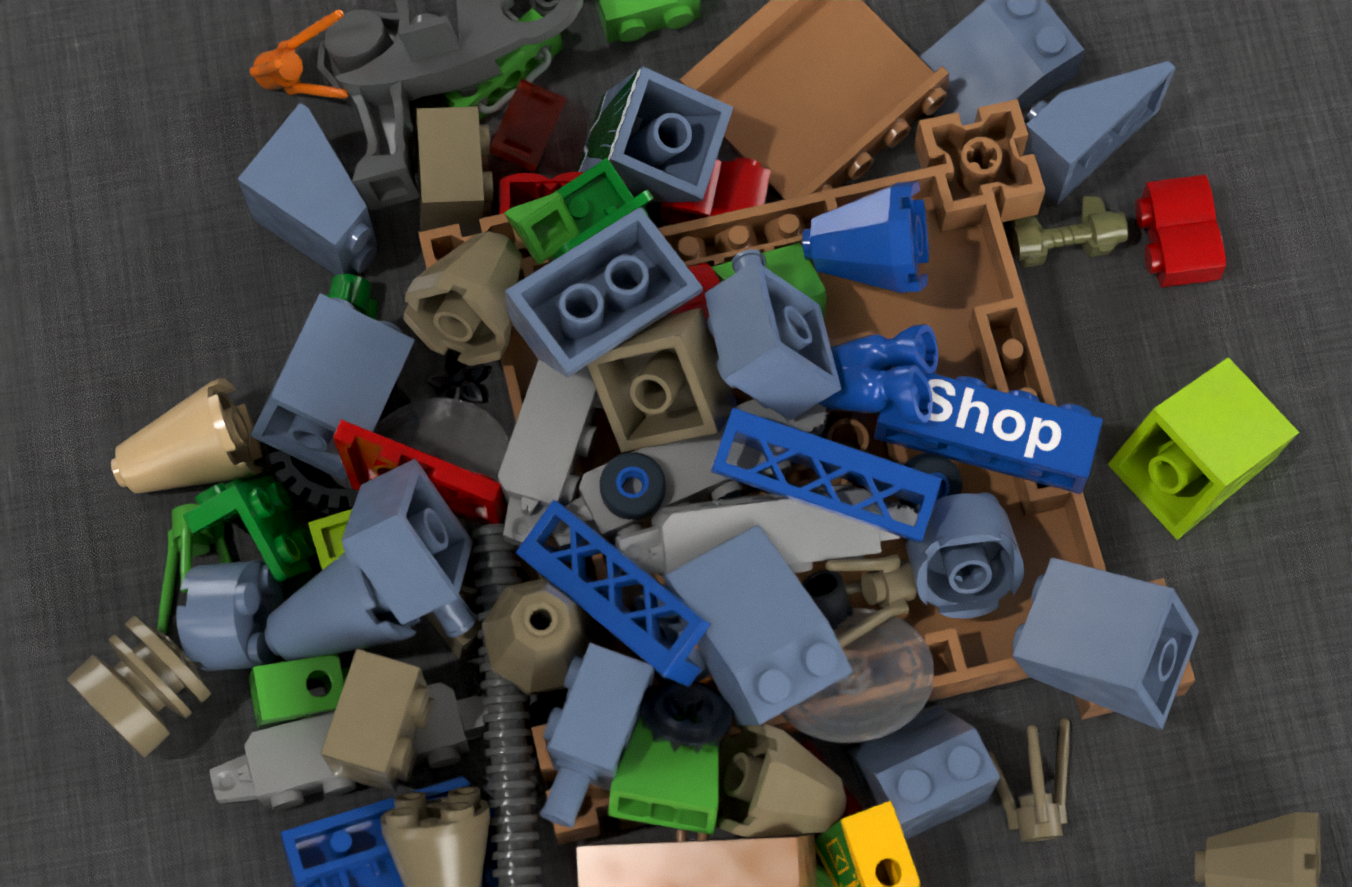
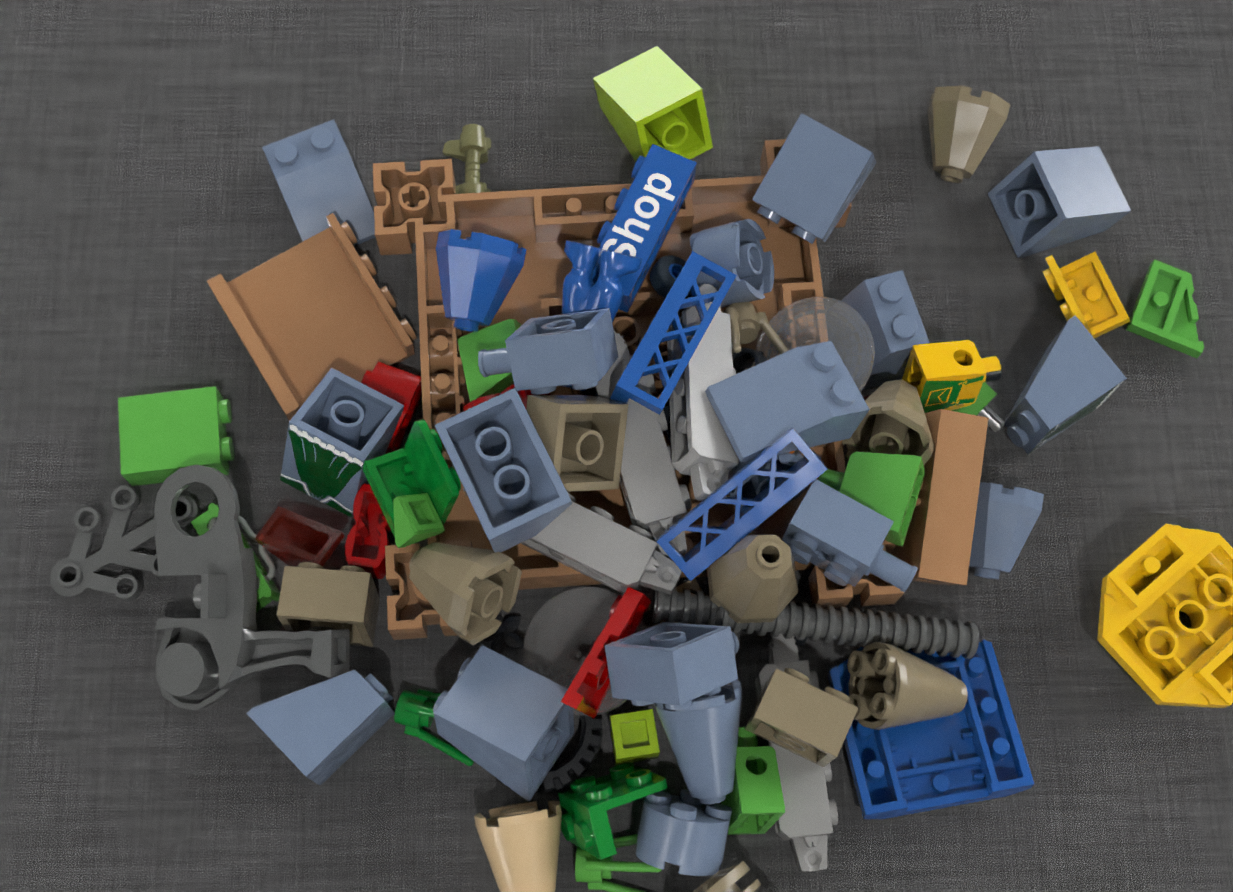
camera: 85 degrees left, 0 degrees up
(284, 67) = (194, 736): orange plant -> none
(632, 505) = (653, 465): black wheel -> none
(698, 700) = (856, 454): black gear -> none
(1039, 815) = (912, 267): dark tan plant -> none
(1090, 124) = (396, 125): sand blue slope -> none
(1181, 230) = (485, 92): red brick -> none

